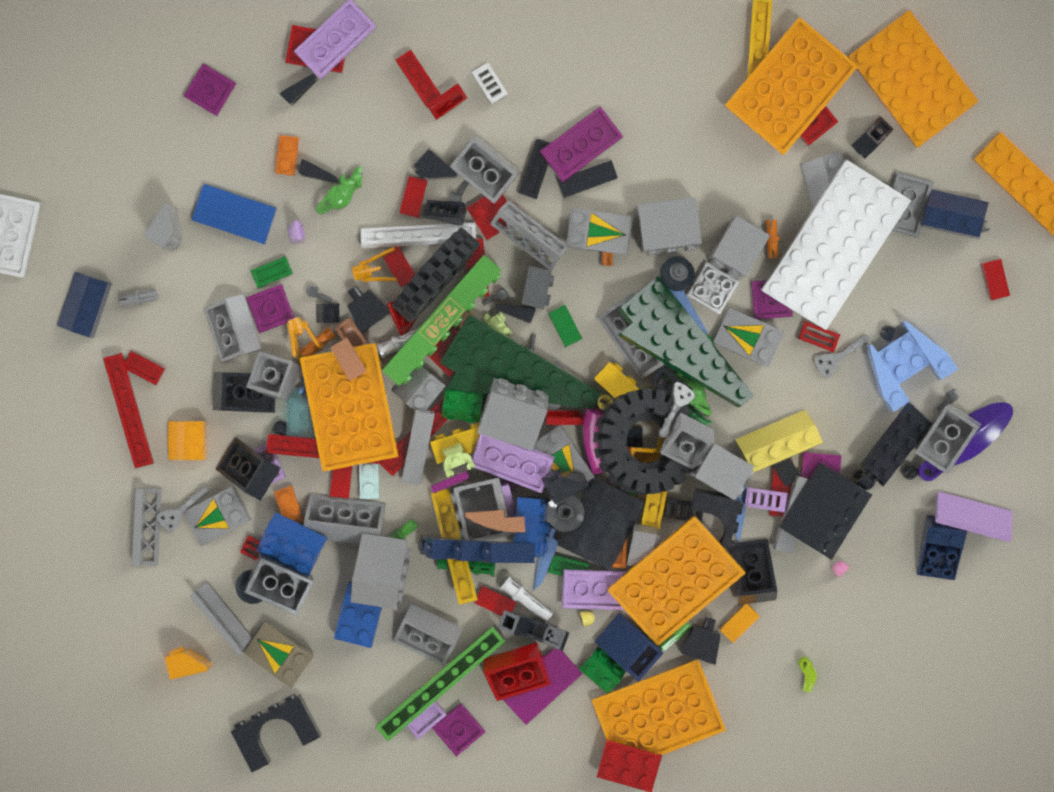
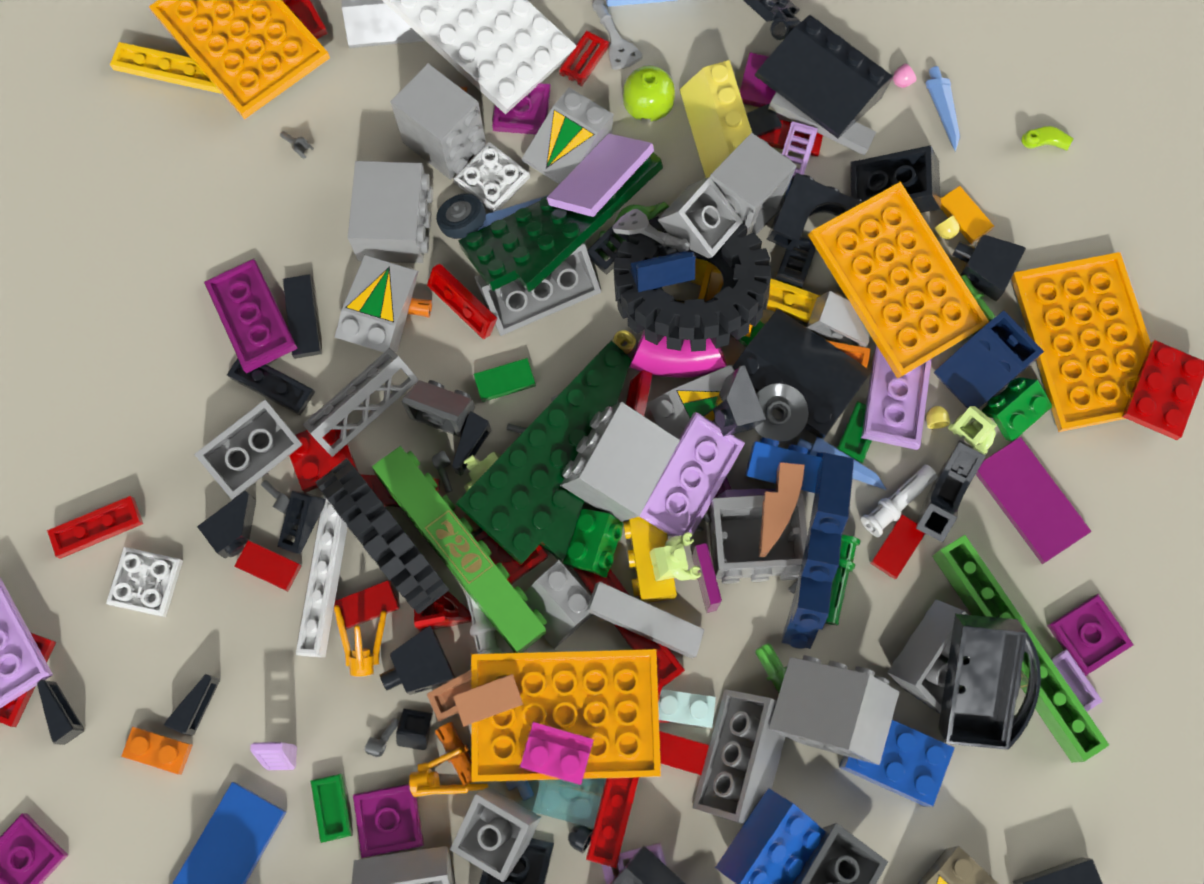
camera: 80 degrees left, 15 degrees down
(289, 504) = (704, 845): orange plate -> none
(324, 406) = (556, 753): none -> dark pink plate
(340, 196) = (236, 674): bright green animal -> none
(390, 119) = (144, 582): none -> white tile
(415, 665) = (991, 680): none -> black piece
(447, 101) = (134, 491): red tile -> none
(450, 529) = (779, 592): yellow plate -> none
(498, 96) = (144, 432): white slope -> none
(516, 671) = (1010, 528): red slope -> none
(580, 642) = (976, 428): none -> yellowish green piece
(614, 286) = (461, 301): none -> red tile
(614, 381) = (596, 322): yellow brick -> none
(643, 422) = (663, 270): none -> dark blue panel
(715, 146) = (298, 145): none -> dark grey hand
(720, 366) = (600, 174): none -> lavender tile
(726, 611) = (948, 229): none -> light yellow hinge
(796, 388) = (648, 93): none -> lime cylinder
(831, 597) = (942, 97): none -> medium blue bar

